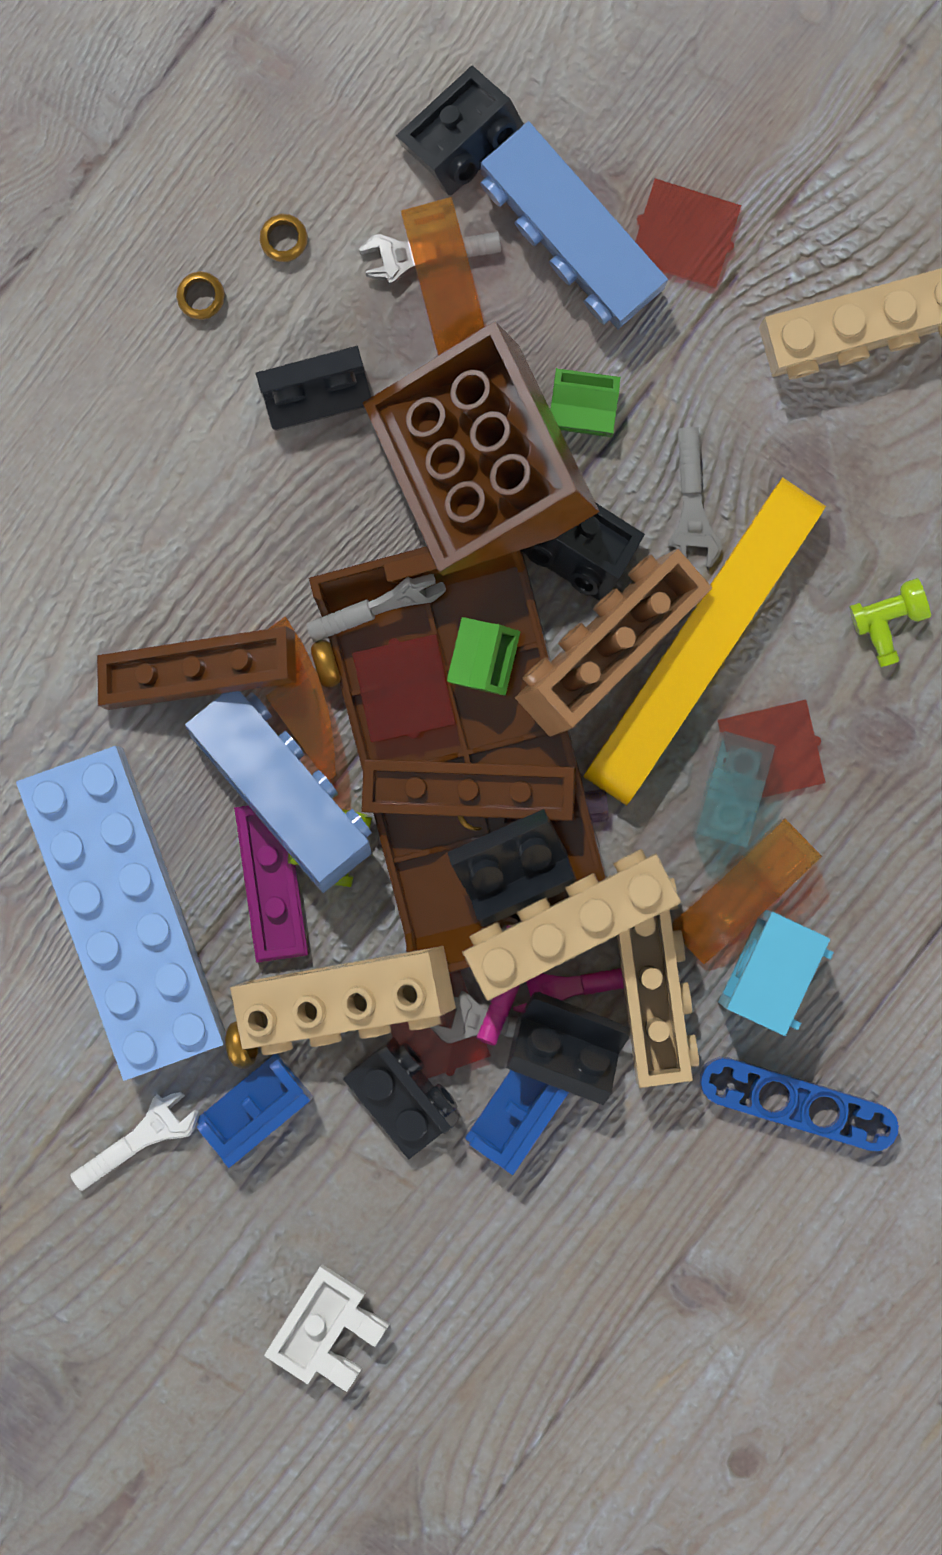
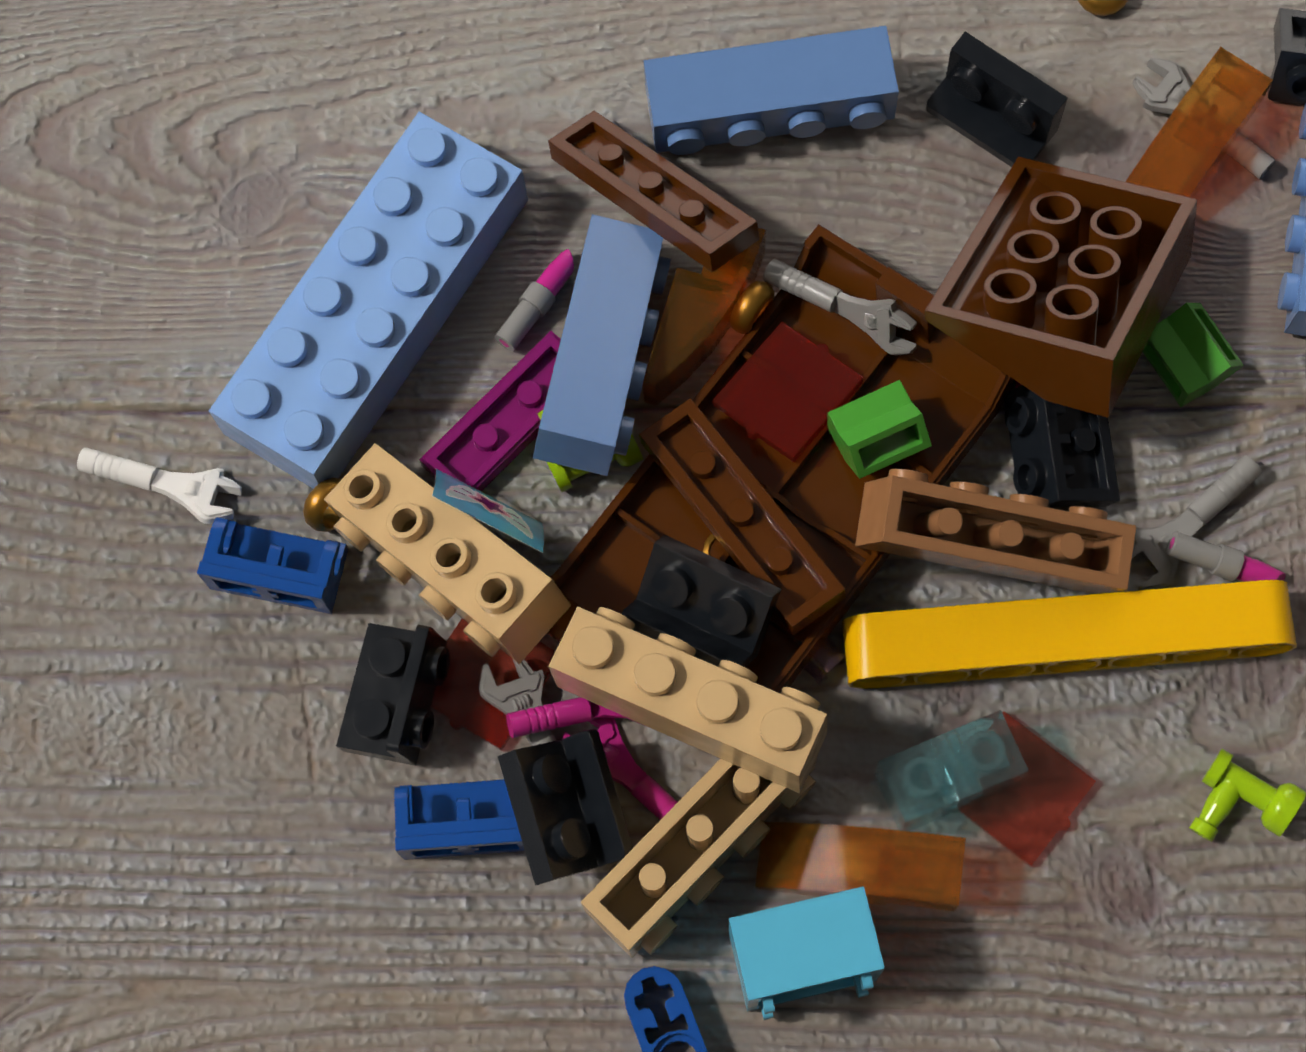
camera: 60 degrees right, 15 degrees down
(183, 529) = (771, 90): none -> medium blue brick
(203, 799) = (536, 301): none -> light grey piece
(315, 1325) = (104, 782): white plate -> none
(335, 948) = (488, 510): none -> medium azure sticker
(735, 501) = (1220, 560): none -> light grey piece

